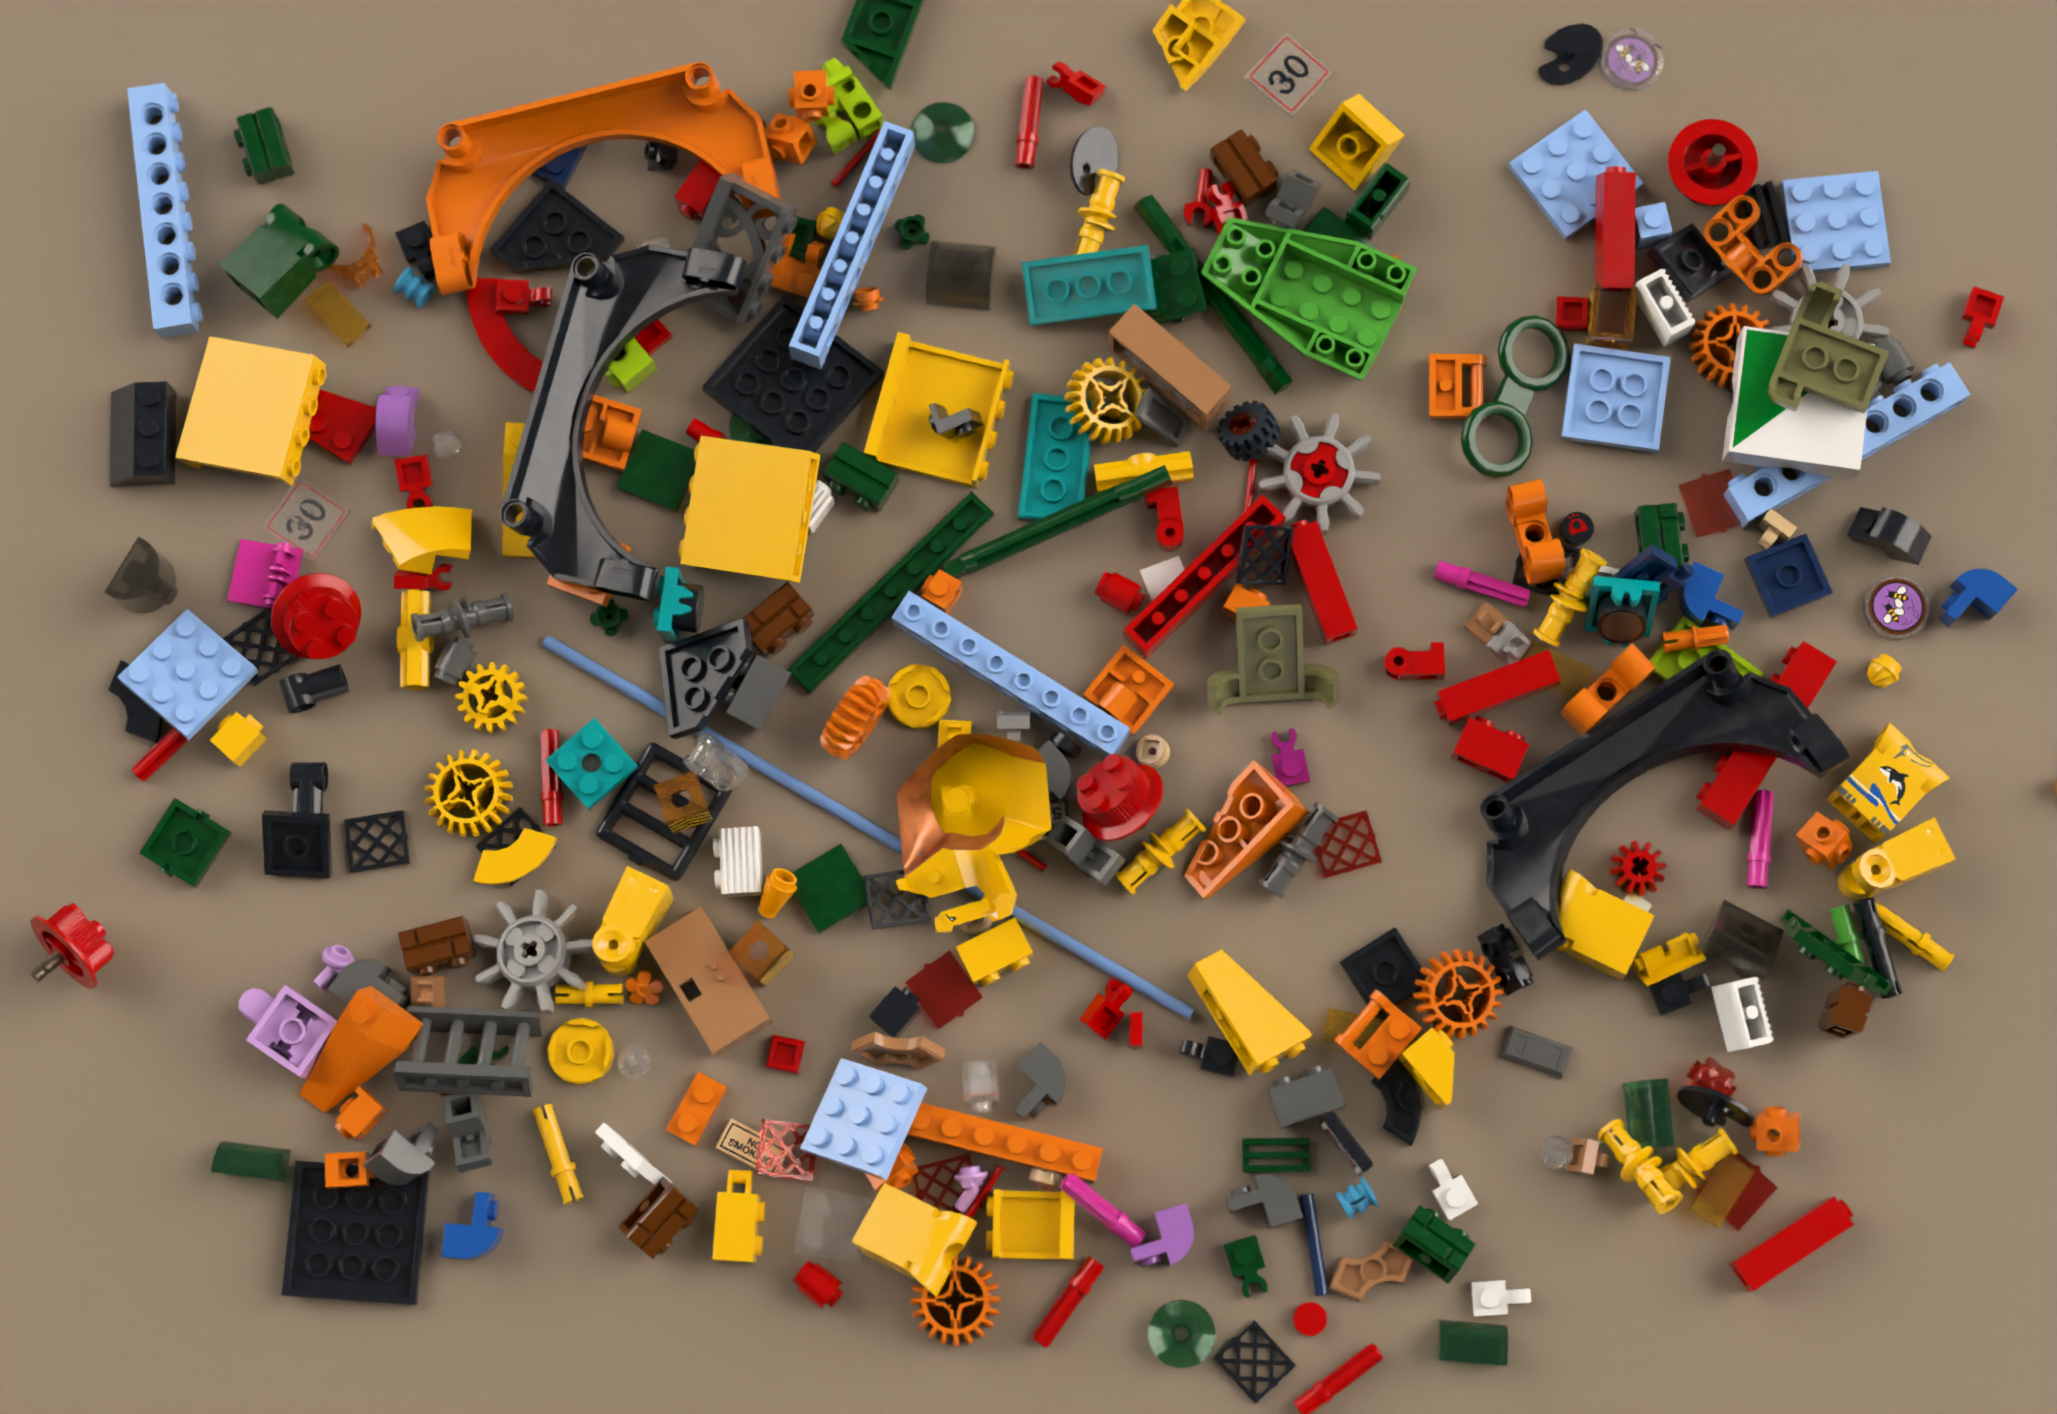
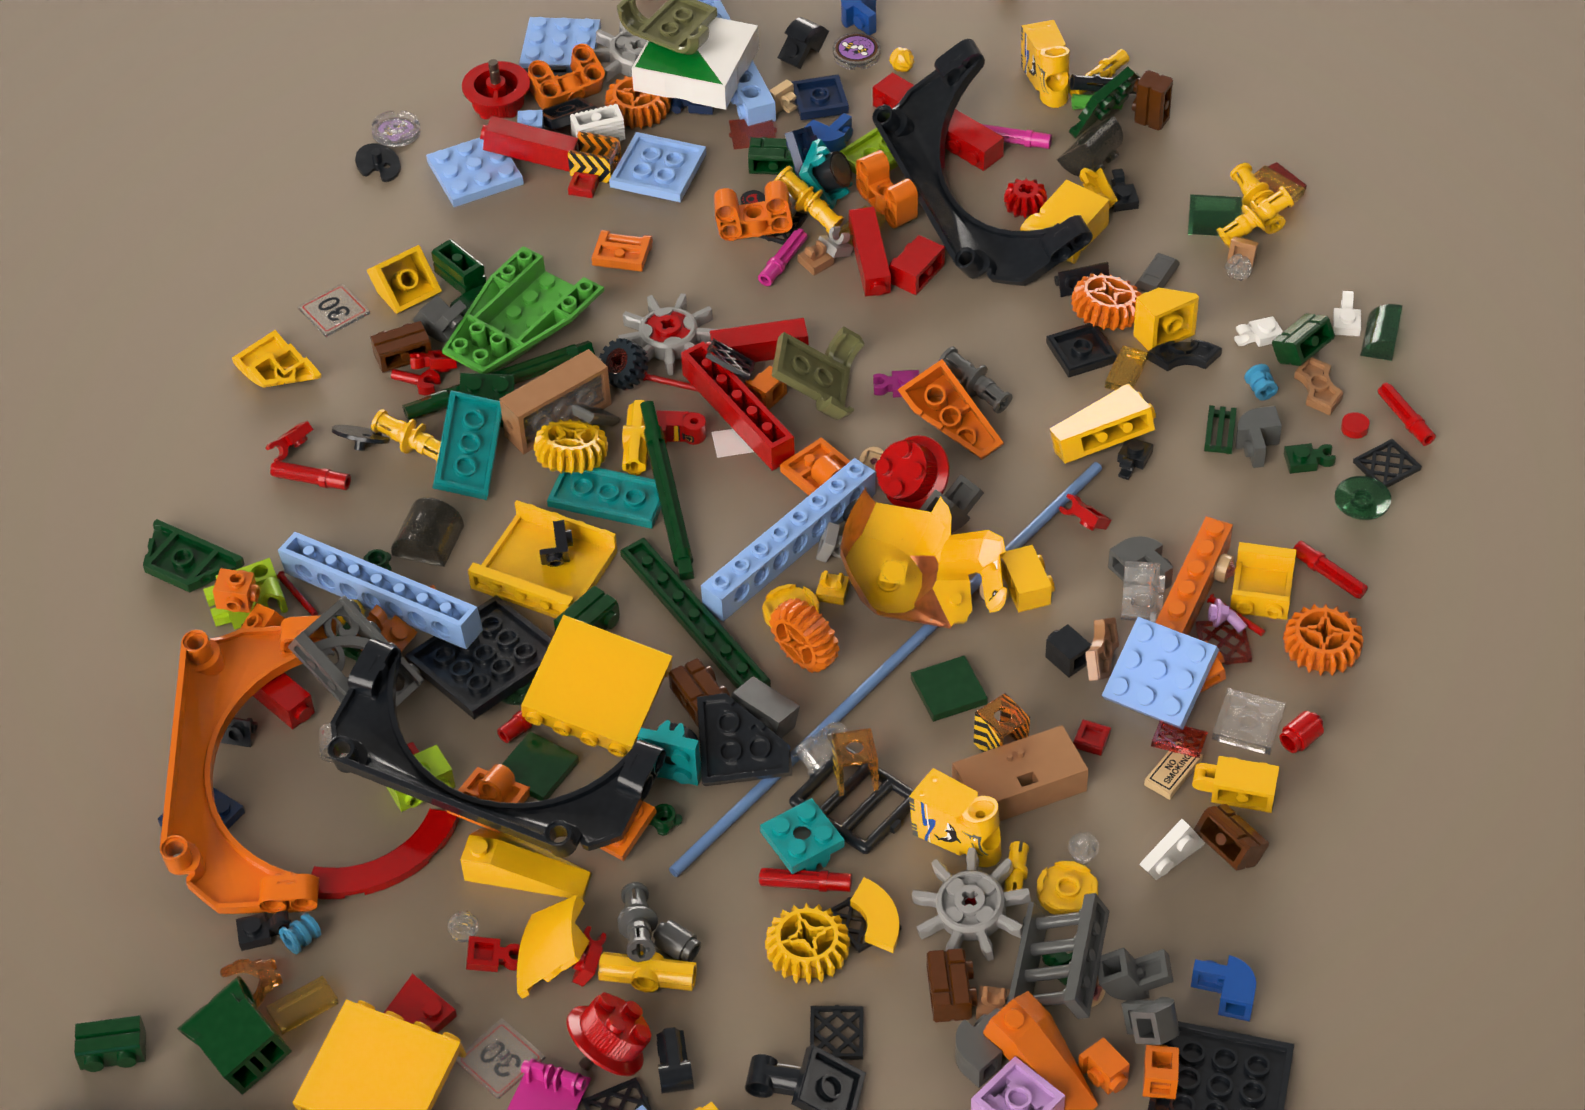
camera: 85 degrees left, 30 degrees down
(336, 958) = (949, 1074): lavender plate -> none
(396, 420) = (430, 954): medium lavender brick -> none
(487, 709) = (719, 914): yellow gear -> none
(516, 297) = (338, 852): red plate -> none
(554, 233) = (287, 816): black plate -> none
(558, 1155) = (1174, 911): yellow pin -> none
(644, 989) = (1016, 829): orange plant -> none
(697, 1108) = (1132, 807): orange plate -> none
(739, 862) = (914, 744): white brick -> none
(776, 892) = (947, 718): light orange cone -> none
(871, 902) = (967, 655): black window -> none
(913, 1237) = (1270, 647): yellow piece -> none
(941, 590) = (701, 569): orange brick -> none
(944, 990) = (1047, 618): clear red piece -> none
(948, 145) = (287, 526): clear green dish -> none
(1114, 1219) = (1262, 527): dark pink axle -> none
(1119, 592) = (734, 463): red brick -> none
(1136, 1030) = (1106, 496): red tile -> none
(1160, 851) = (960, 461): yellow piece -> none
(1176, 1237) = (1281, 493): medium lavender brick -> none
(1305, 1097) = (1177, 398): dark grey brick -> none
(1314, 1244) = (1308, 416): dark blue bar -> none
(1346, 1143) = (1219, 373): black tile -> none
(1350, 866) = (971, 347): clear red window -> none
(1386, 1042) = (1137, 346): orange plate -> none
(1416, 665) = (838, 297): red leg -> none
(1514, 396) = (640, 218): dark green bar -> none
(1696, 638) = (856, 142): orange axle -> none
(1712, 1076) = (1194, 179): clear red piece -> none
(1713, 1106) = (1212, 178): black piece -> none
(1742, 1014) = (1146, 154): white brick -> none
(1786, 1123) = (1236, 147): orange brick -> none
(1792, 1243) = (1320, 156): red brick -> none
(1825, 841) = (1024, 98): orange brick -> none
(1886, 785) = (1003, 70): yellow piece -> none

